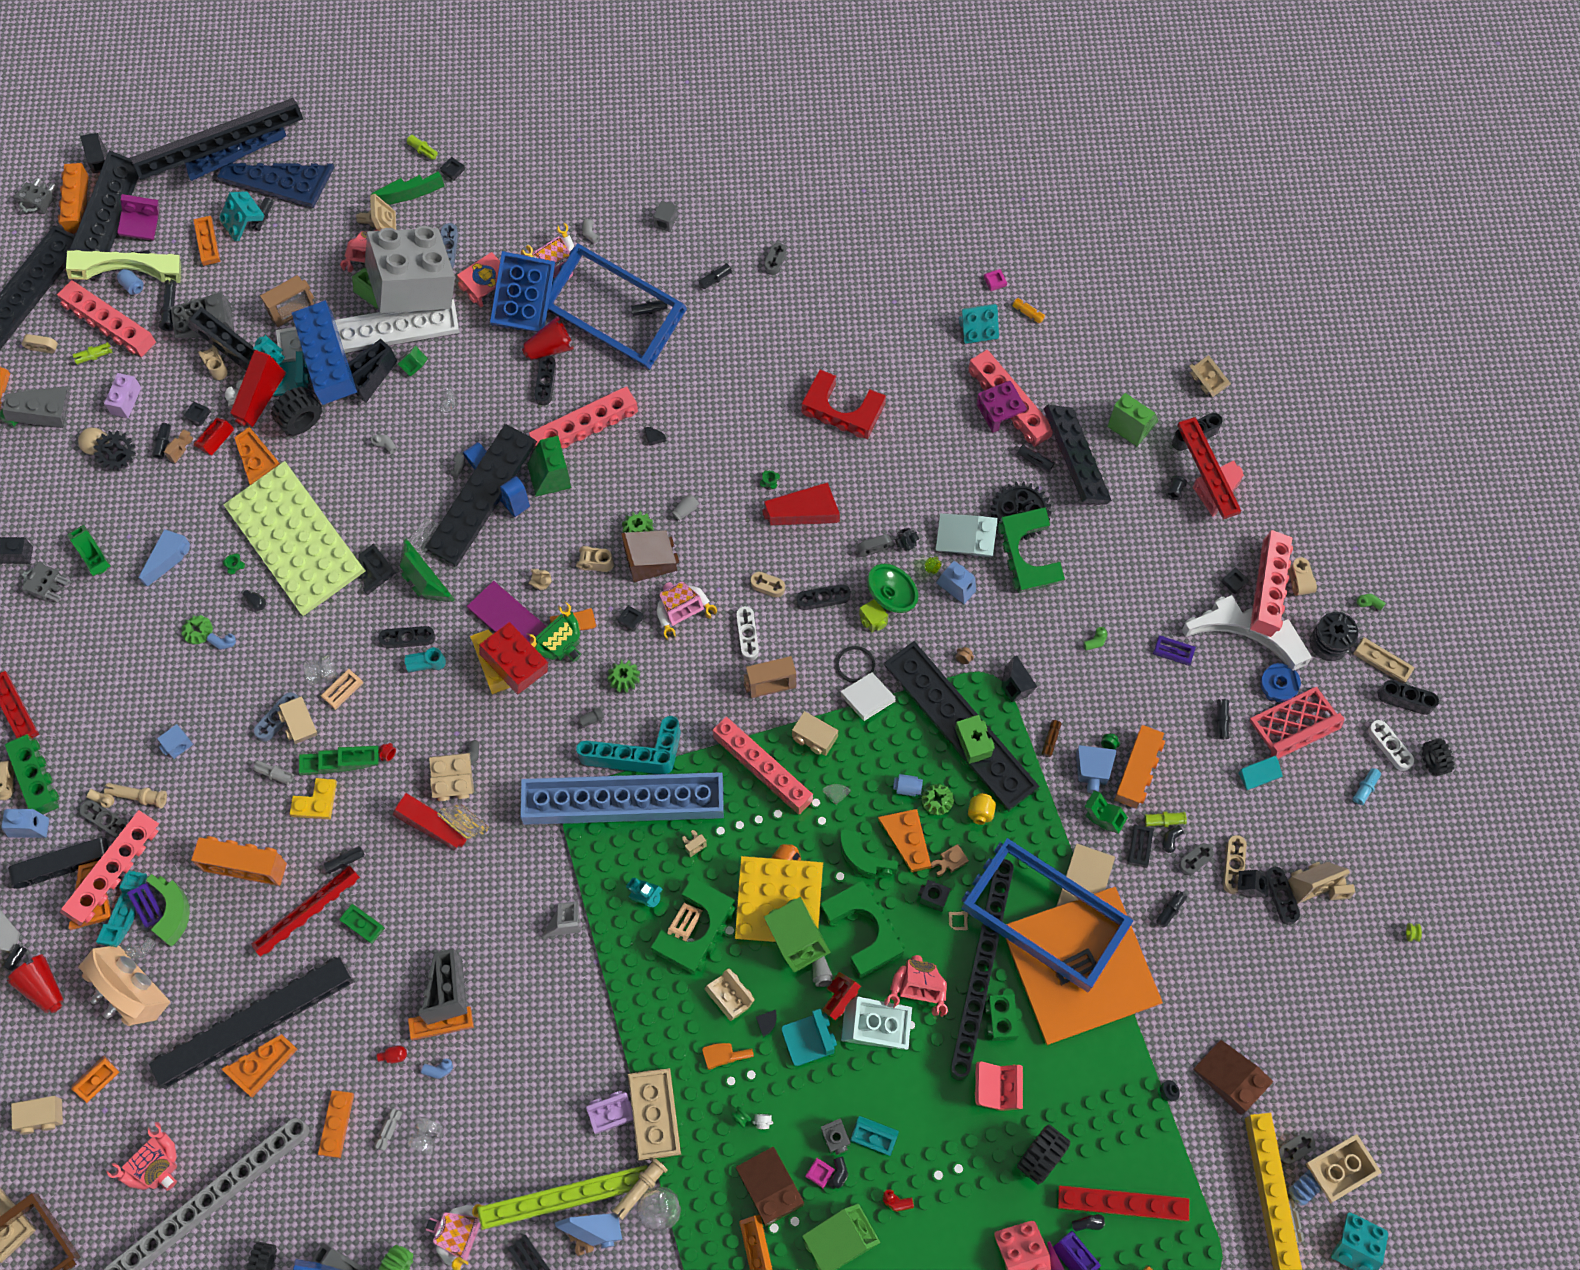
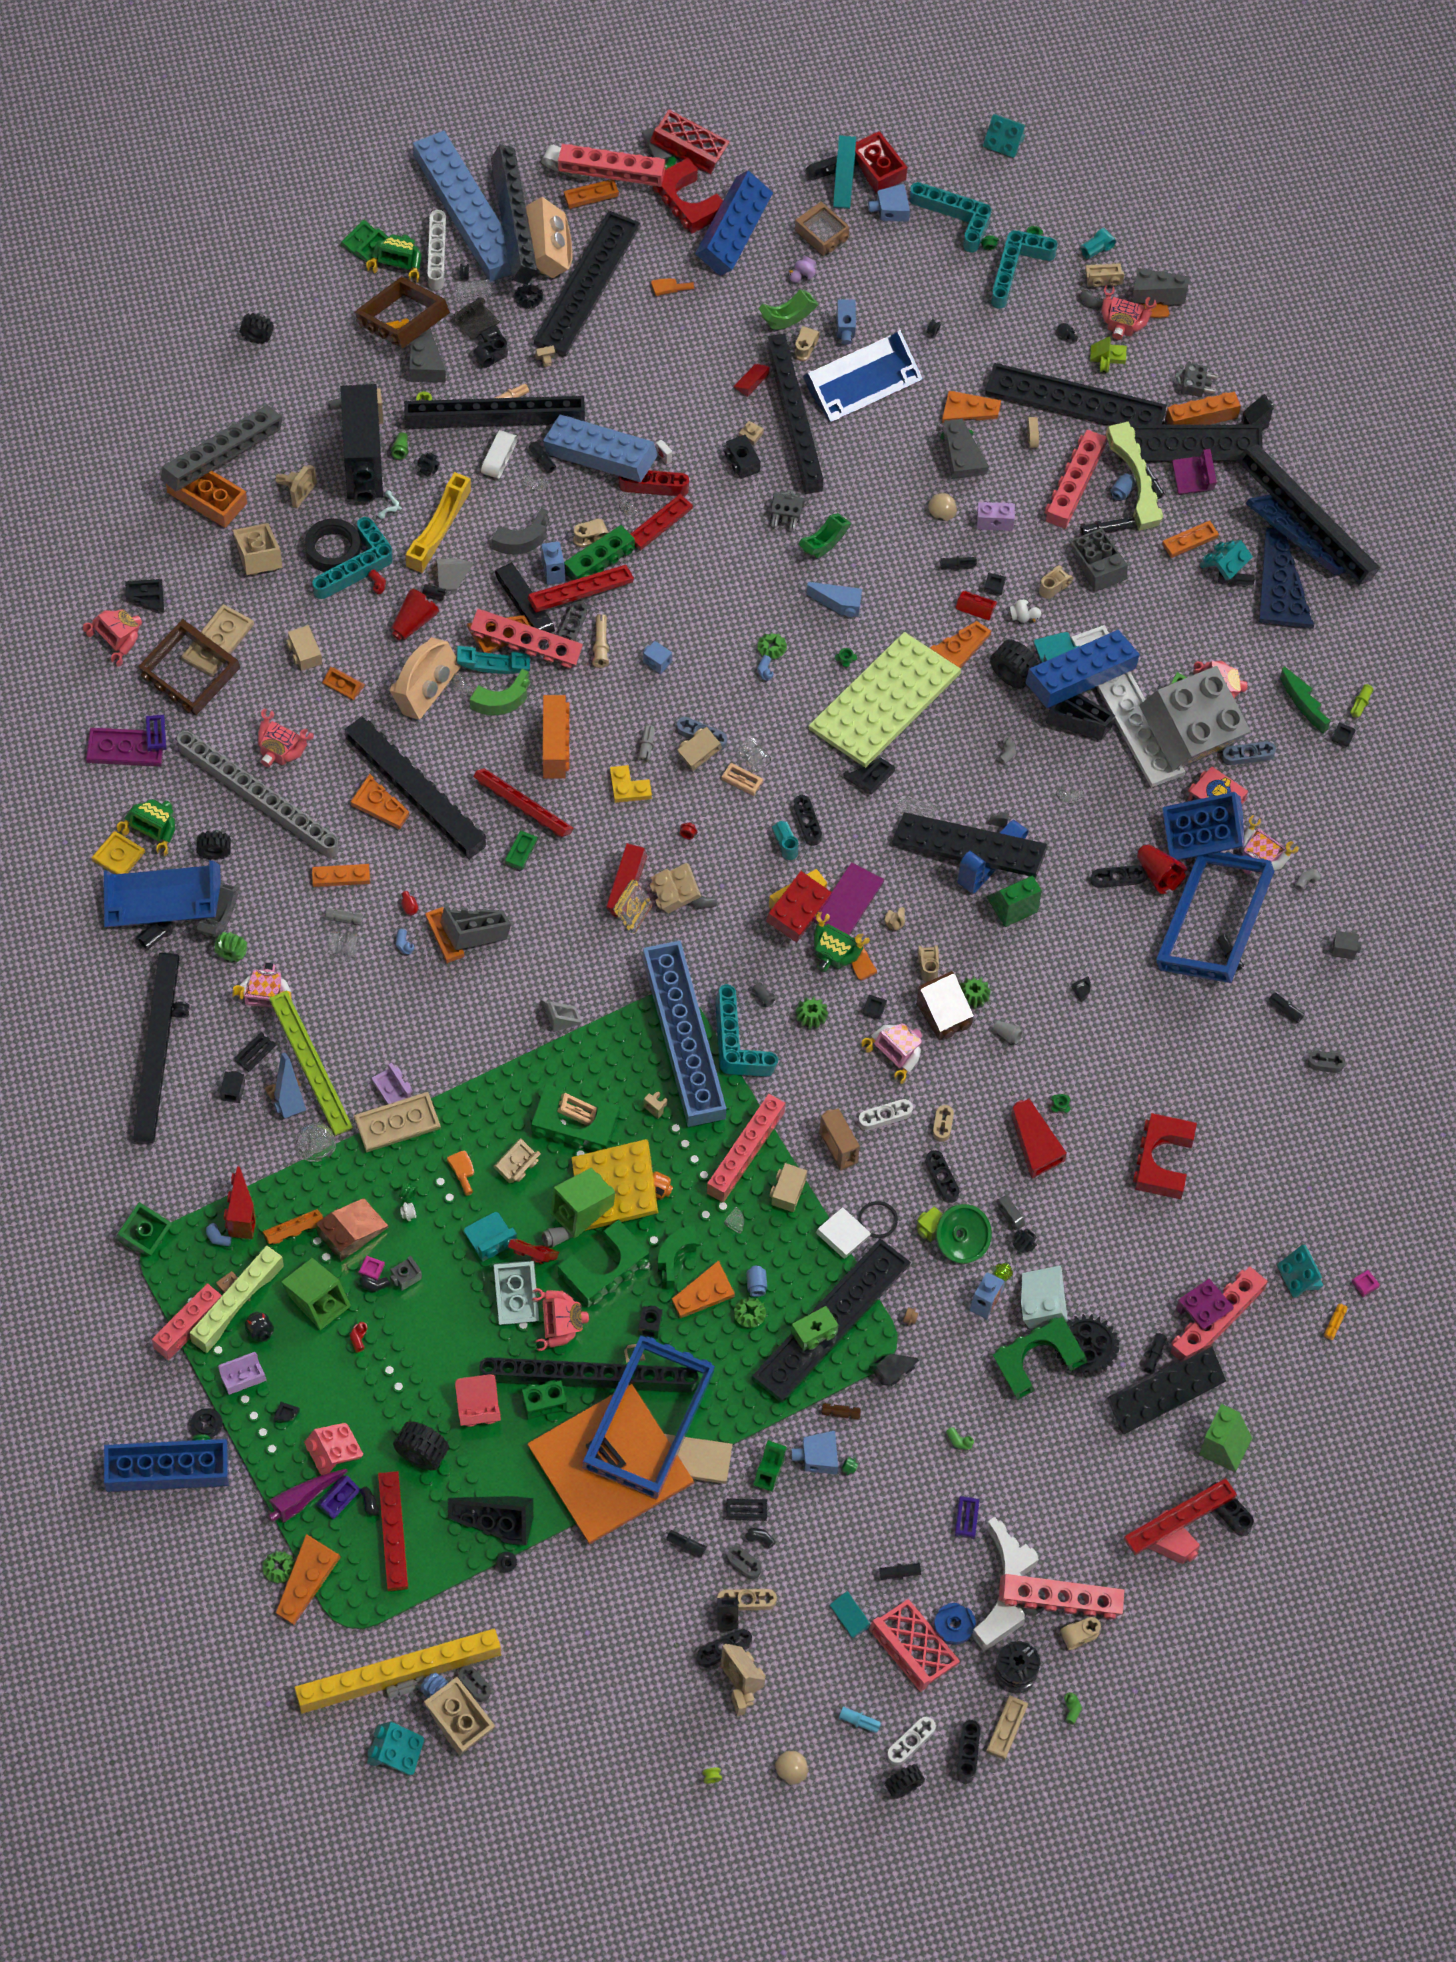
camera: 75 degrees right, 5 degrees down
(67, 801) = (580, 588): none -> red plate
(92, 353) = (1035, 478): lime pin -> none
(105, 800) = (590, 618): tan arm -> none
(113, 458) = (929, 525): black gear -> none
(135, 903) = (501, 682): dark purple tile -> none
(177, 447) = (953, 577): medium nougat plate -> none
(221, 337) = (1074, 581): black brick -> none
(254, 600) = (812, 684): black cylinder -> none
(256, 388) = (1031, 624): red slope -> none
(268, 347) = (1074, 622): teal hips -> none
(287, 298) = (1137, 625): medium nougat window -> none
(338, 760) = (670, 793): green slope -> none
(344, 859) = (577, 821): black axle -> none
(379, 216) = (1260, 683): tan piece -> none
(412, 361) = (1104, 753): green panel -> none
(421, 575) = (873, 814): green wedge -> none
(589, 414) = (1088, 922): coral brick -> none
(644, 892) = (597, 1070): teal hips -> none
(645, 1181) = (337, 1125): tan pin -> none
(767, 1022) = (499, 1199): black tile -> none
(874, 1135) = (414, 1308): teal slope -> none
(951, 859) = (690, 1335): medium nougat plate -> none
(981, 808) = (746, 1350): yellow head -> none
(1124, 1085) = (501, 1516): none -> black wedge
(1139, 766) = (827, 1493): orange brick -> none
(1165, 819) = (779, 1527): lime pin -> none
(1176, 487) = (1156, 1496): black bush -> none
(1210, 375) = (1302, 1513): tan bracket -> none
(1233, 1076) = (530, 1618): copper slope -> none
(1235, 580) = (1060, 1567): black plate -> none
(1408, 857) = (792, 1767): none -> tan hair

